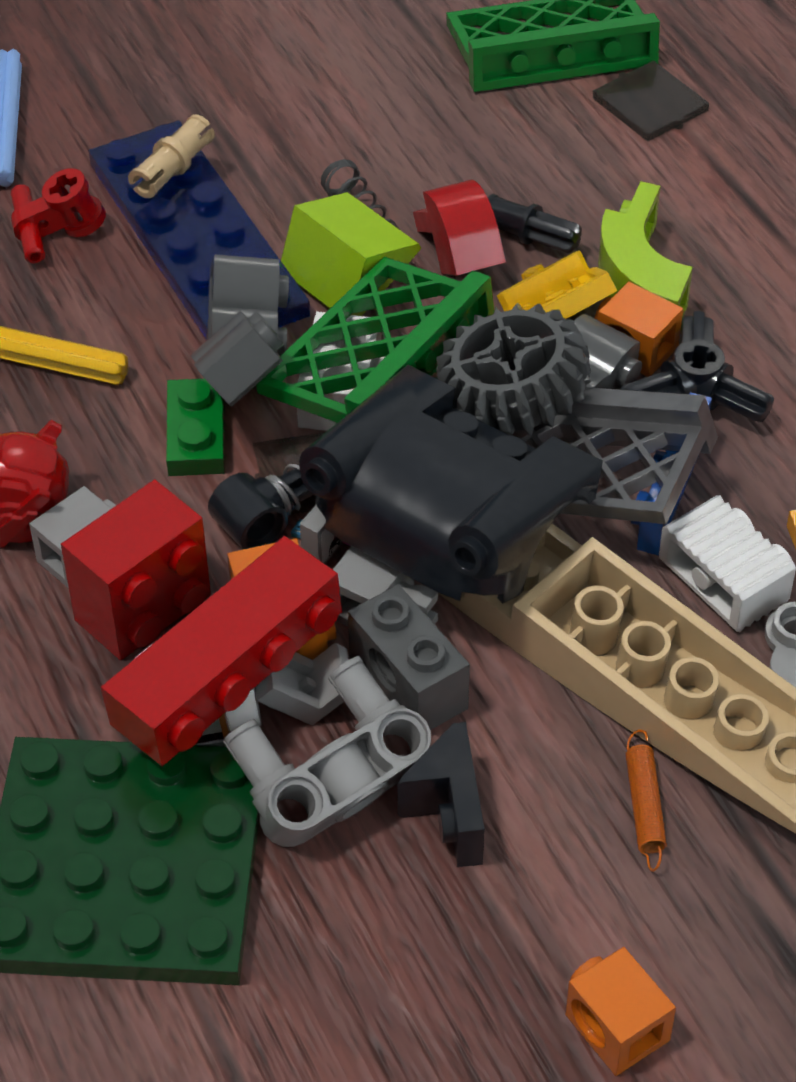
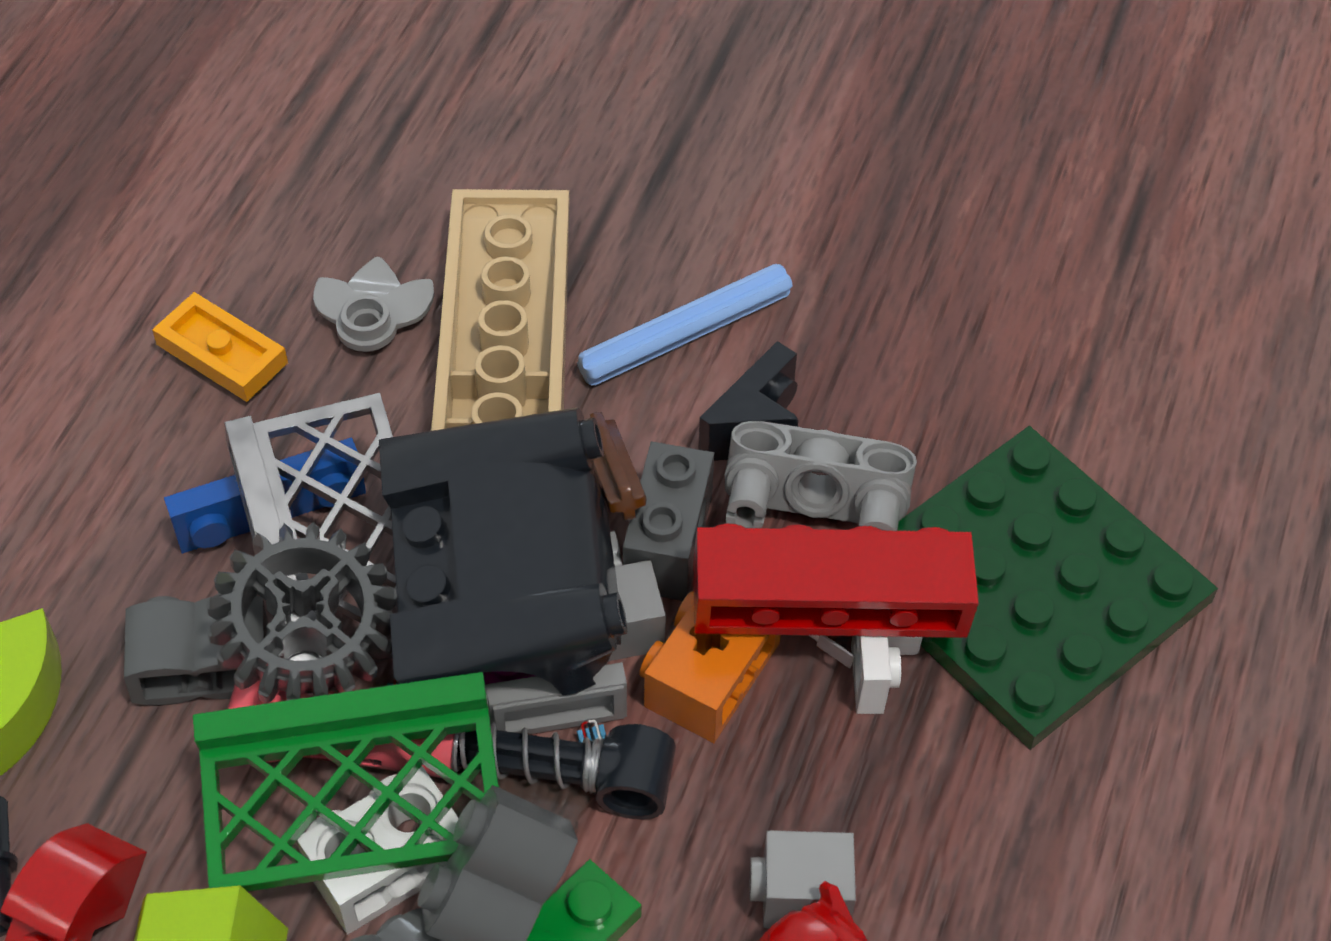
camera: 135 degrees left, 5 degrees up
(137, 569) = (809, 759): red brick -> none
(482, 644) = (616, 472): none -> reddish brown axle
(561, 286) = (104, 745): yellow slope -> none
(589, 836) = (684, 324): none -> light blue axle
(619, 1010) = (811, 209): orange brick -> none
(645, 799) = (621, 314): orange piece -> none
(646, 319) = (86, 647): orange brick -> none
(701, 369) = (119, 560): black bush -> none
(728, 562) = (339, 370): white brick -> none

